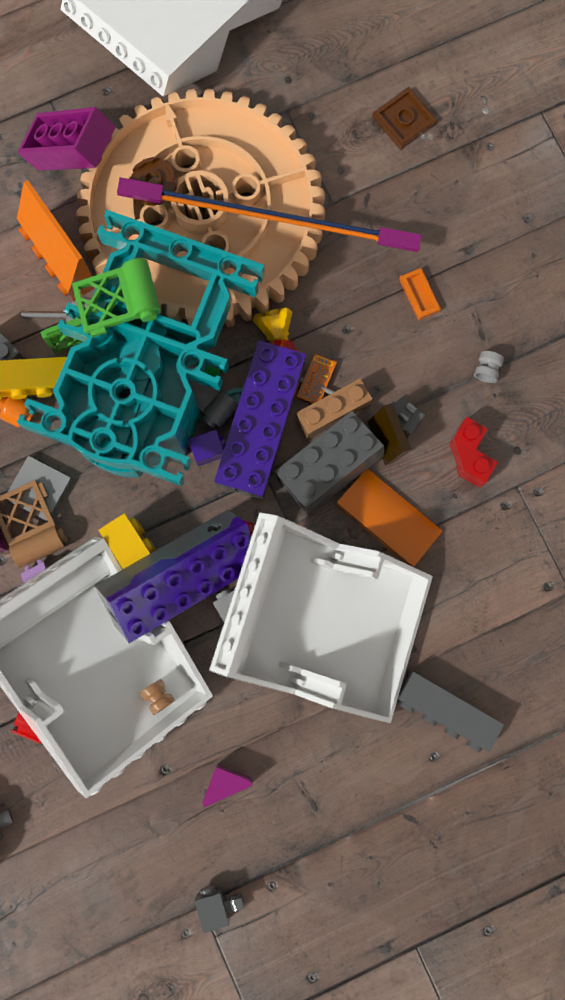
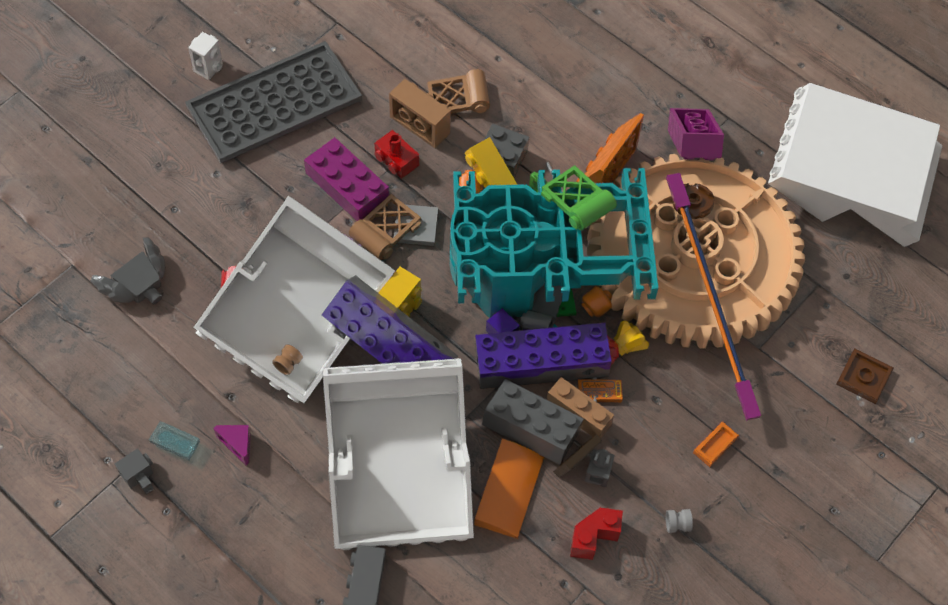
camera: 65 degrees right, 20 degrees down
(195, 852) = (174, 440): none -> clear light blue plate
(225, 341) = (597, 301): none -> orange head

